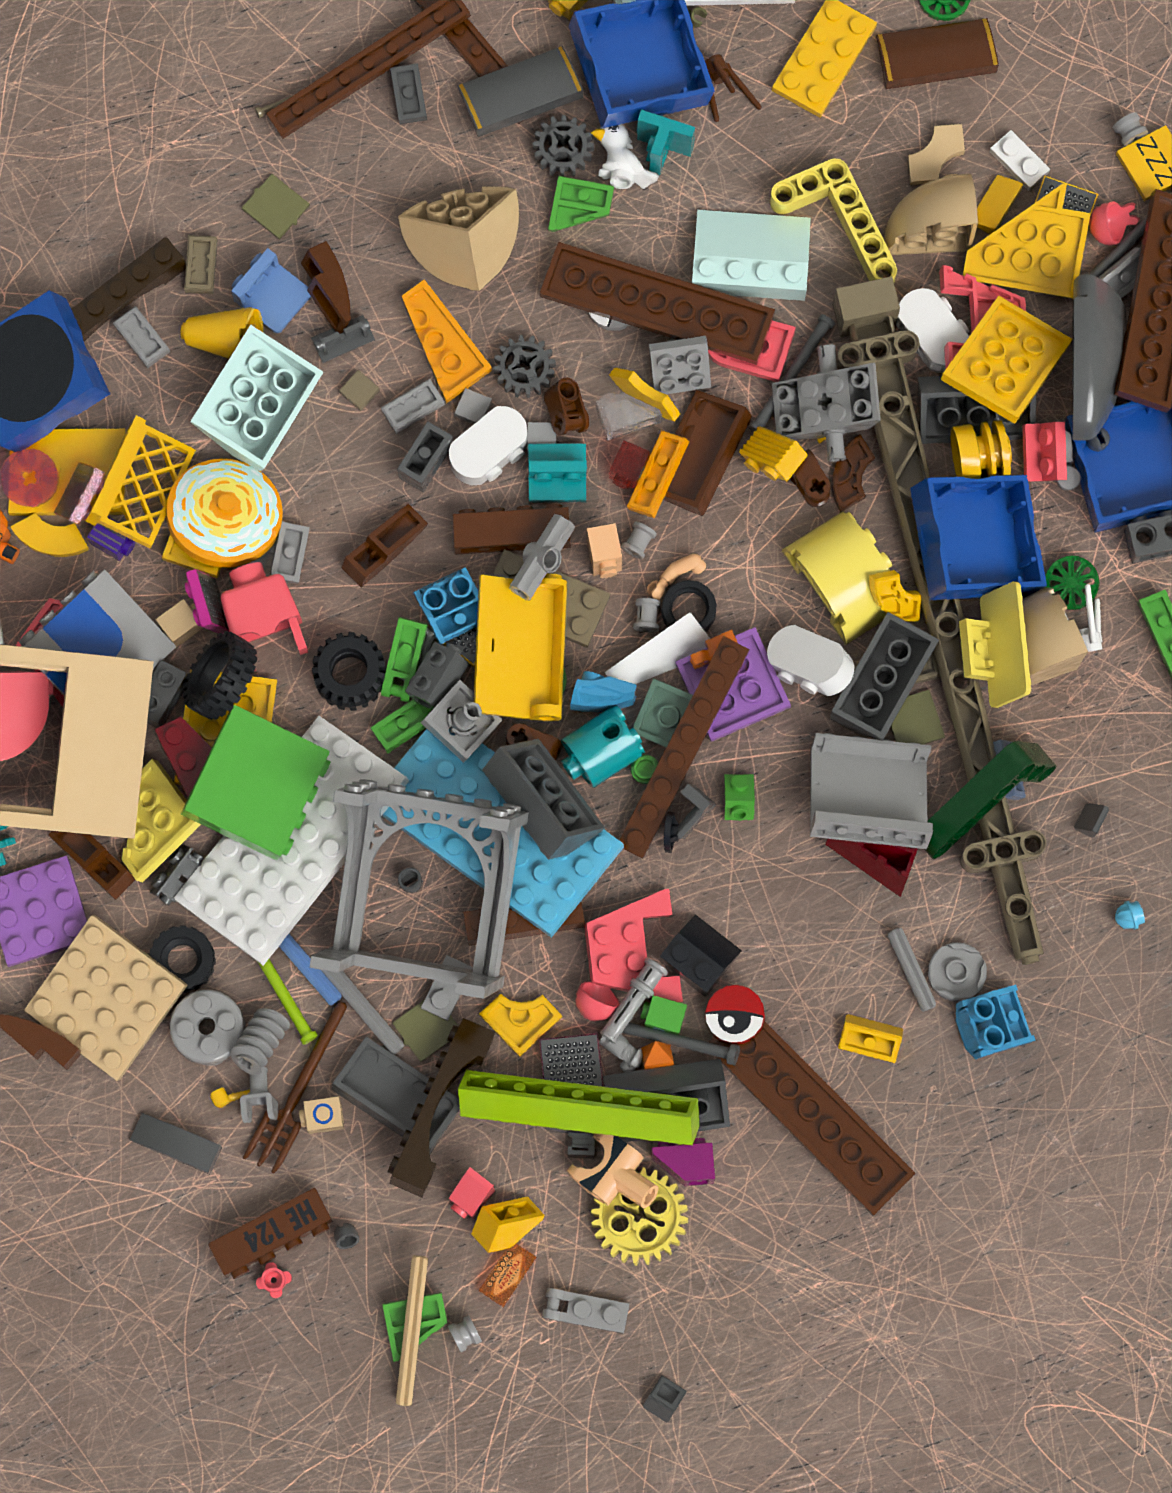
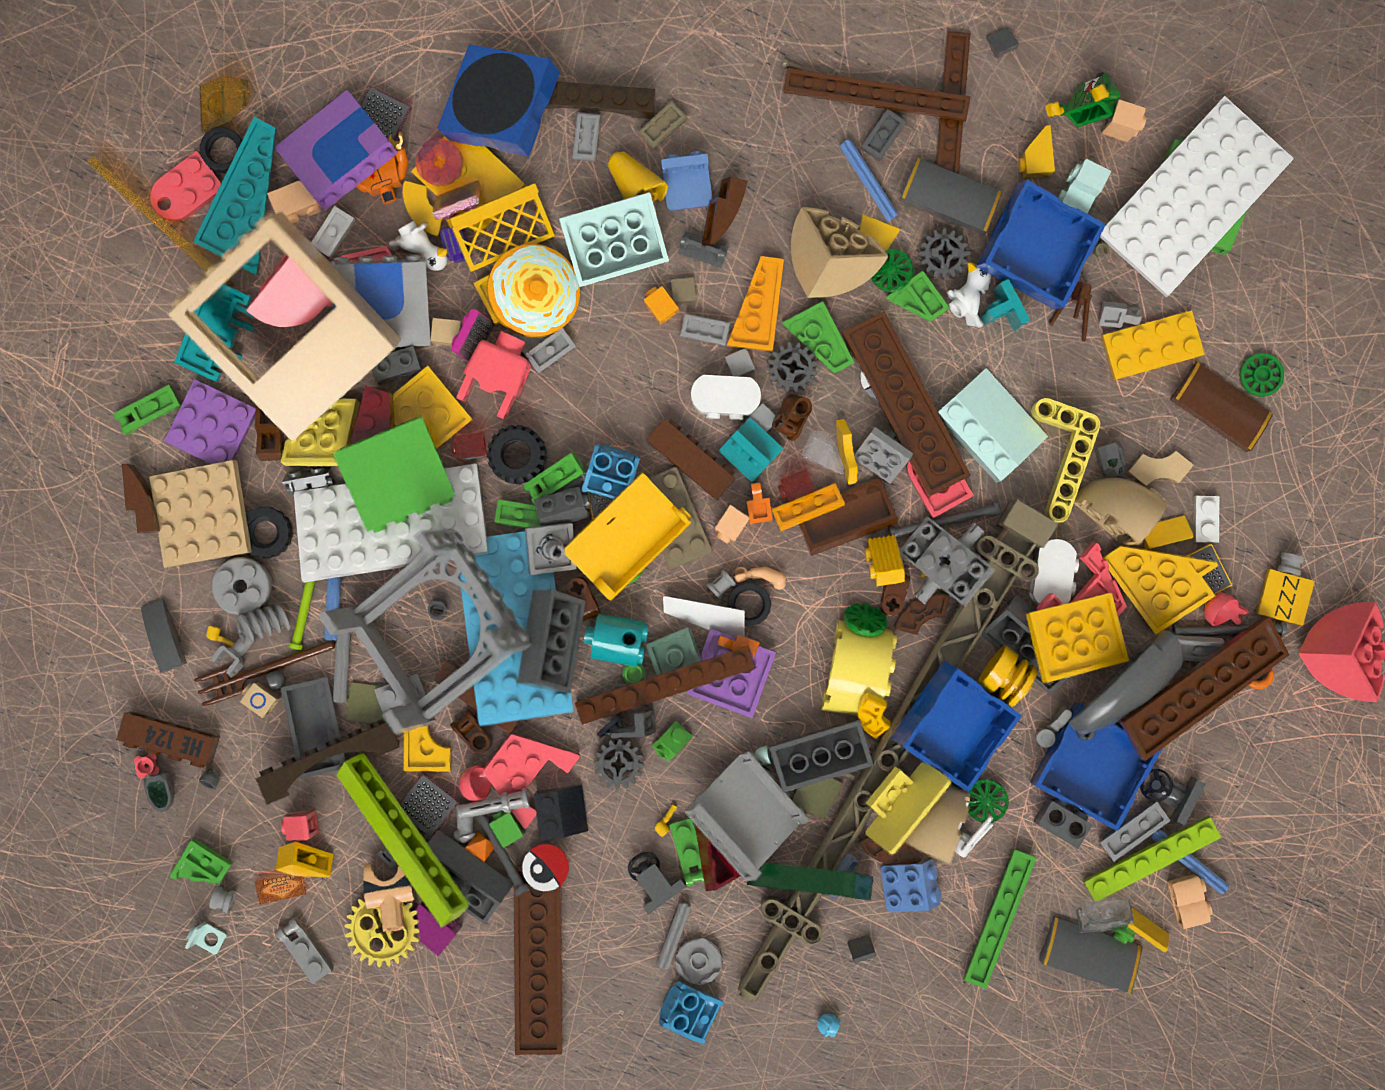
camera: 45 degrees right, 10 degrees up
(74, 565) = (415, 240): none -> white animal
(239, 660) = (444, 374): black tyre -> none
(275, 206) = (740, 130): olive piece -> none
(298, 705) = (469, 446): none -> clear red brick
(310, 1288) = (160, 791): none -> rock
(320, 1084) = (276, 679): none -> dark grey hinge
(351, 420) = (660, 304): none -> light orange brick
(383, 545) = (609, 397): reddish brown slope -> none
(411, 1330) = (193, 870): tan axle -> none
(425, 456) = (681, 368): dark grey brick -> none
(433, 144) = (868, 180): none -> medium blue axle
(472, 1387) = (198, 934): none -> light aqua bracket
(488, 177) = (880, 231): none -> yellow sticker
(518, 313) = (819, 333): none -> bright green wing
(532, 201) = (893, 270): none -> green wheel
(542, 557) = (689, 496): light grey piece -> none
(547, 959) = (471, 731): none -> reddish brown piece
(599, 693) = (646, 607): dark azure slope -> none
(612, 513) = (759, 508): none -> orange plate
(638, 540) = (759, 535): light grey bush -> none
(664, 1399) = (301, 1041): dark grey slope -> none
(719, 871) = (629, 763): none -> dark grey gear
(765, 58) = (1114, 315): none -> light grey plate
(805, 883) = (661, 827): none -> yellow hand
(806, 523) = (861, 621): none -> green wheel
(810, 661) = (786, 705): white brick -> none
(834, 728) = (764, 755): none -> light aqua hinge
(845, 934) = (654, 881): none -> dark grey piece
(849, 881) = (687, 849): none -> bright green plate
(870, 1038) = (613, 951): yellow slope -> none
(885, 185) = (1111, 460): none -> dark grey rock
(1030, 711) = (904, 855): none -> reddish brown tile
(1044, 451) = (1047, 710): coral bracket -> none
(1079, 721) = (911, 886): none -> medium blue bracket

